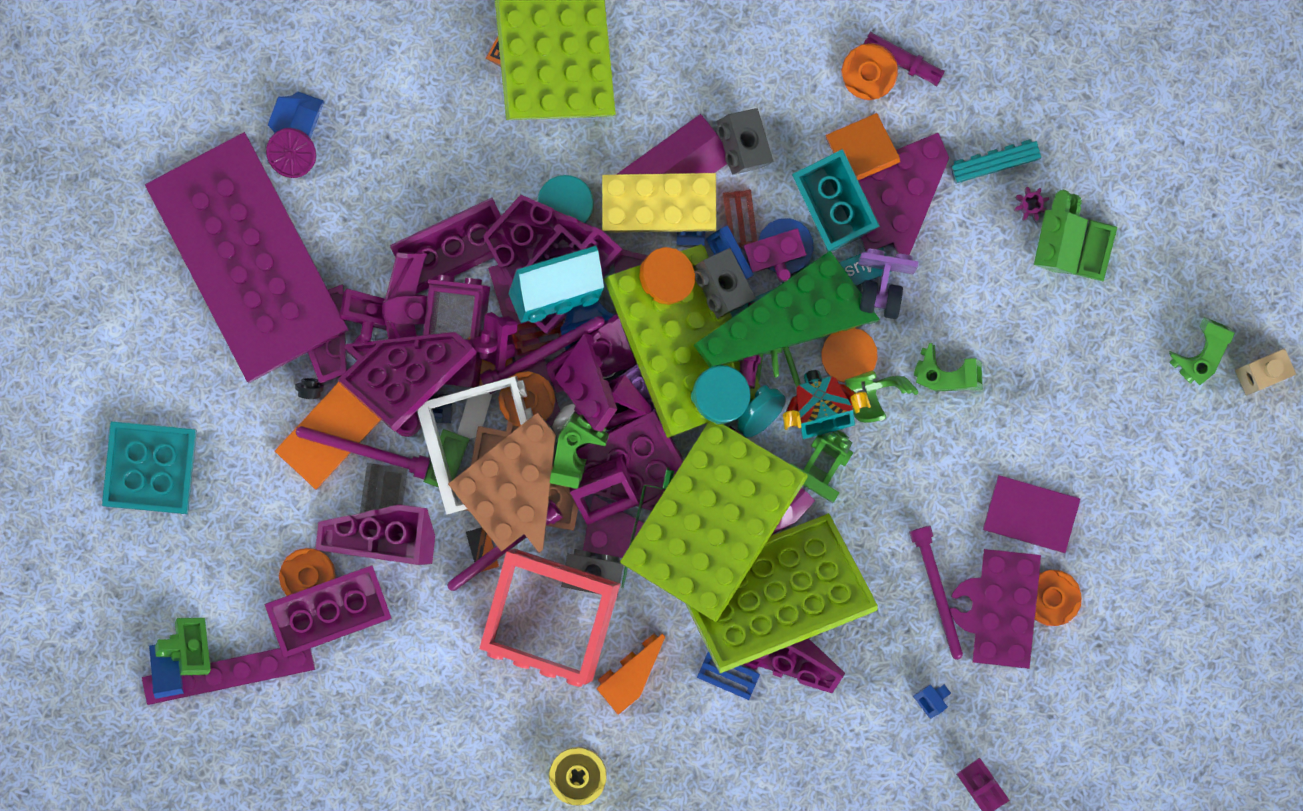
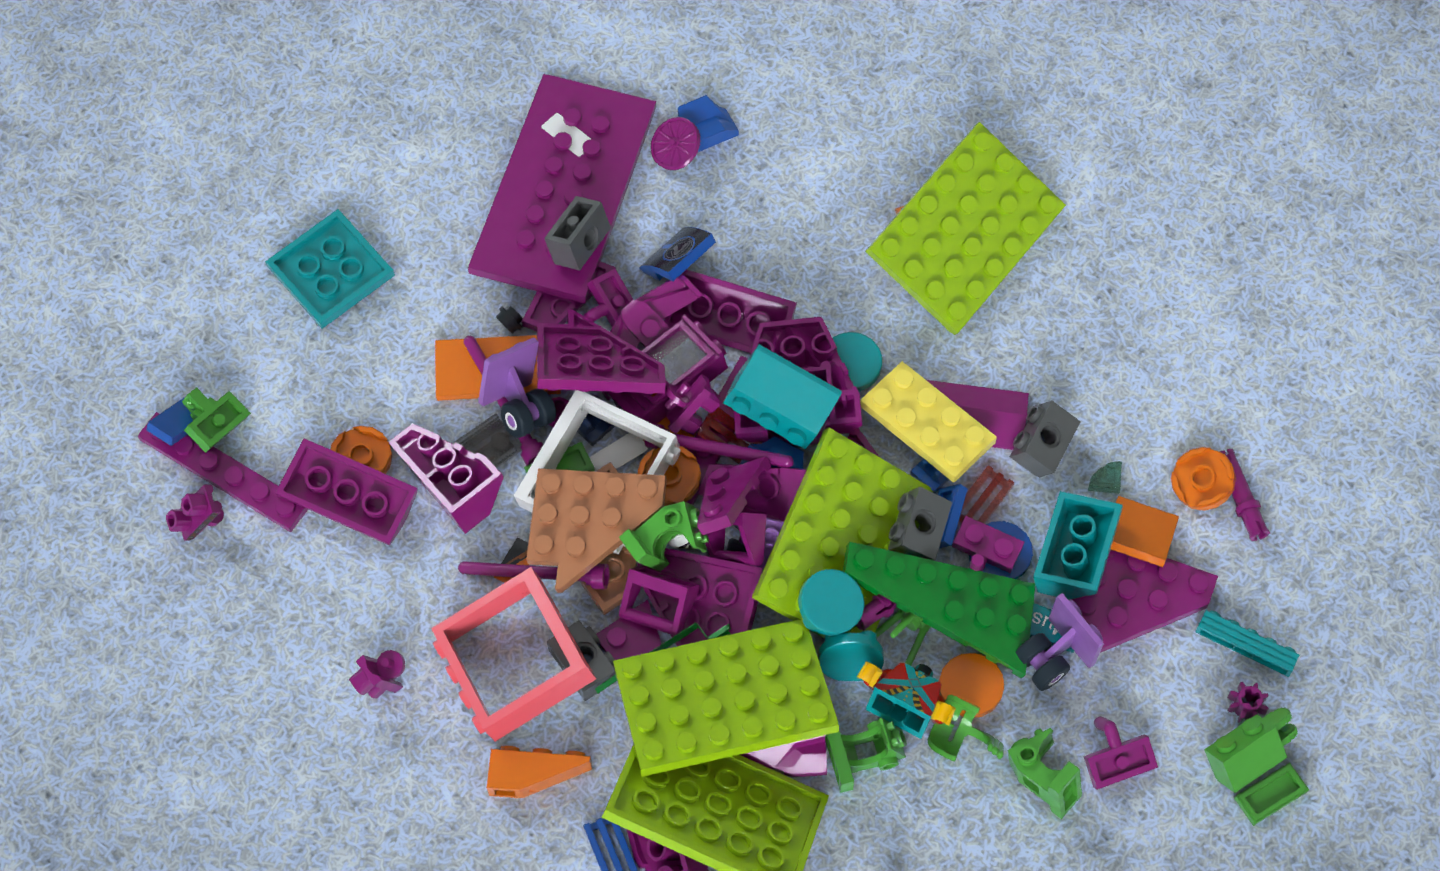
camera: 45 degrees right, 20 degrees down
(196, 218) = (556, 125): none -> white sticker
(245, 720) = (195, 513): none -> magenta hips
(302, 291) = (577, 233): none -> dark grey brick
(377, 236) = (678, 253): none -> slope
(388, 444) = (506, 376): none -> medium lavender plate
(476, 709) = (378, 674): none -> magenta hips
(576, 792) = (390, 794): light yellow brick -> none
(667, 275) = (878, 474): orange tile -> none
(806, 128) = (1107, 478): none -> clear green tile
(986, 317) = (1120, 759): none -> magenta plate

